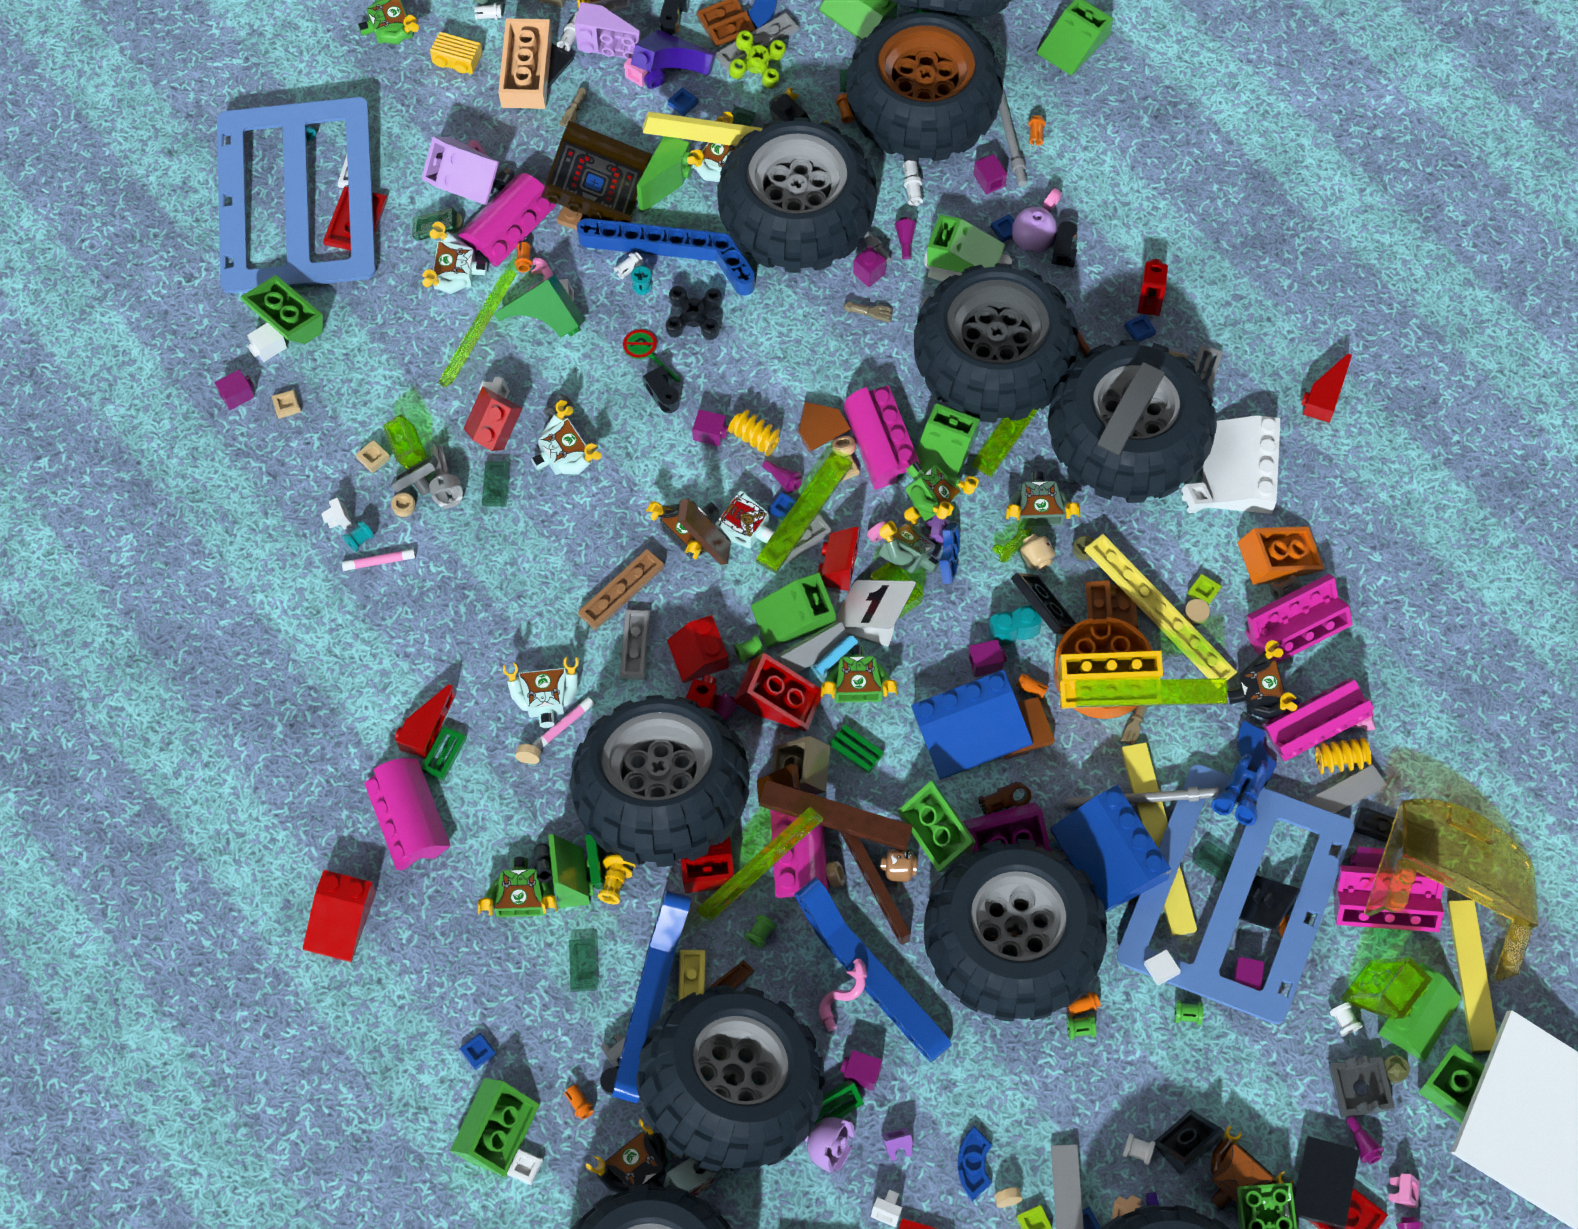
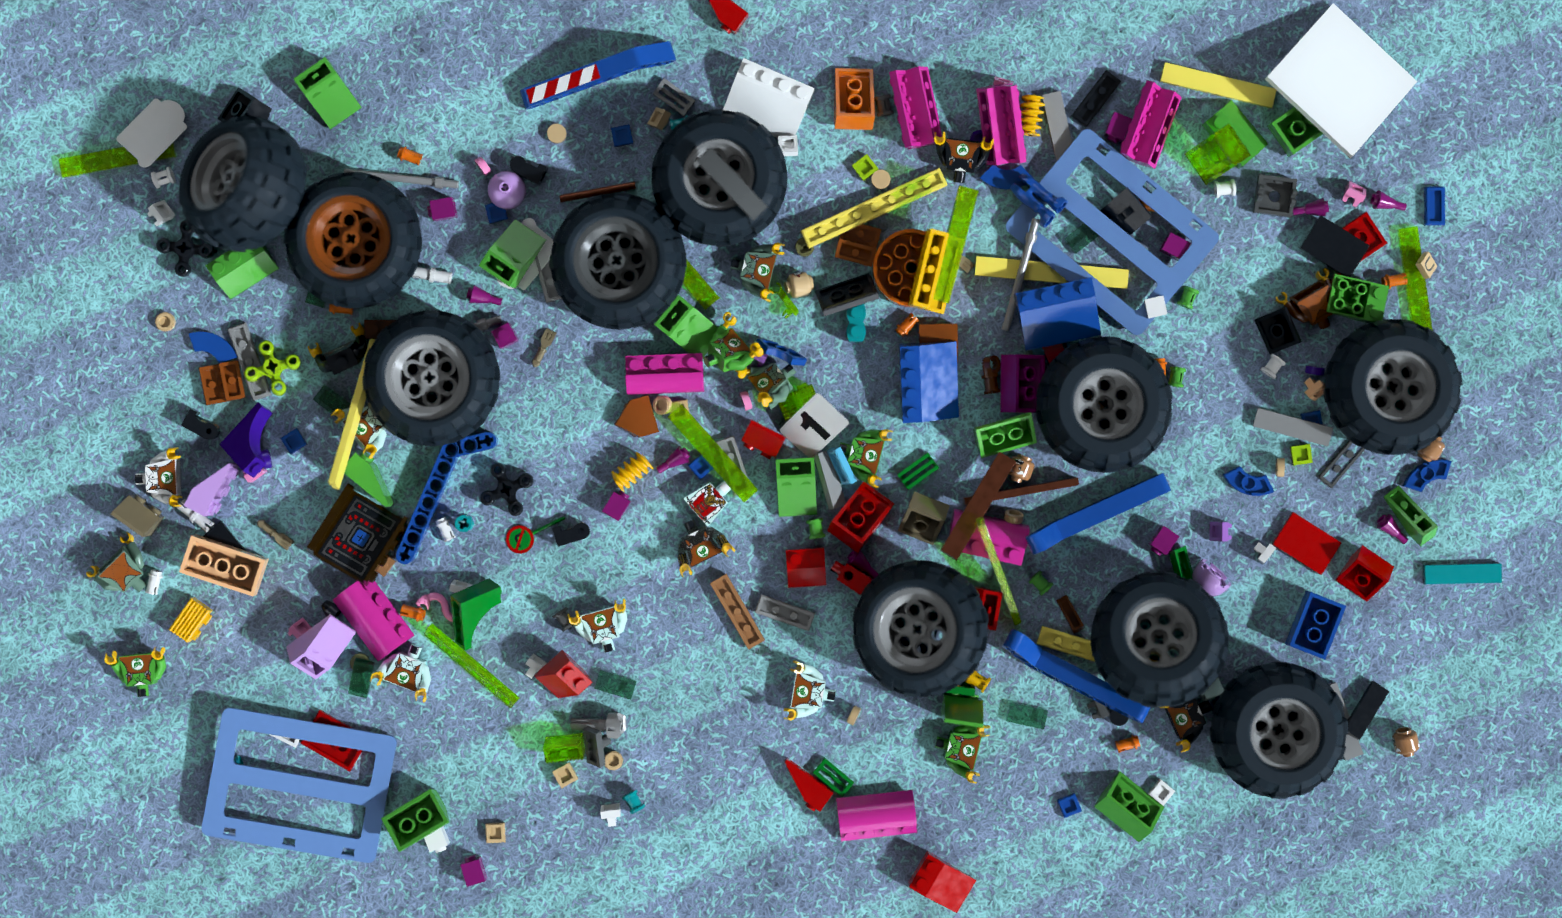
camera: 80 degrees left, 25 degrees up
(378, 559) = (656, 790): bright pink bar -> none
(542, 862) = (946, 728): black pin -> none
(563, 723) = (834, 682): bright pink bar -> none
(704, 531) = (720, 539): reddish brown tile -> none
(786, 776) = (934, 538): reddish brown tile -> none
(825, 1014) = (1098, 523): bright pink animal -> none
(986, 658) = (875, 351): magenta brick -> none
(1117, 264) = (556, 133): none -> tan tile
(1155, 277) = (590, 113): red torso -> none
(1206, 280) = (597, 73): none -> blue beam
(1396, 1069) = (1268, 166): olive tile -> none
(1466, 856) = (1139, 63): clear yellow windscreen -> none

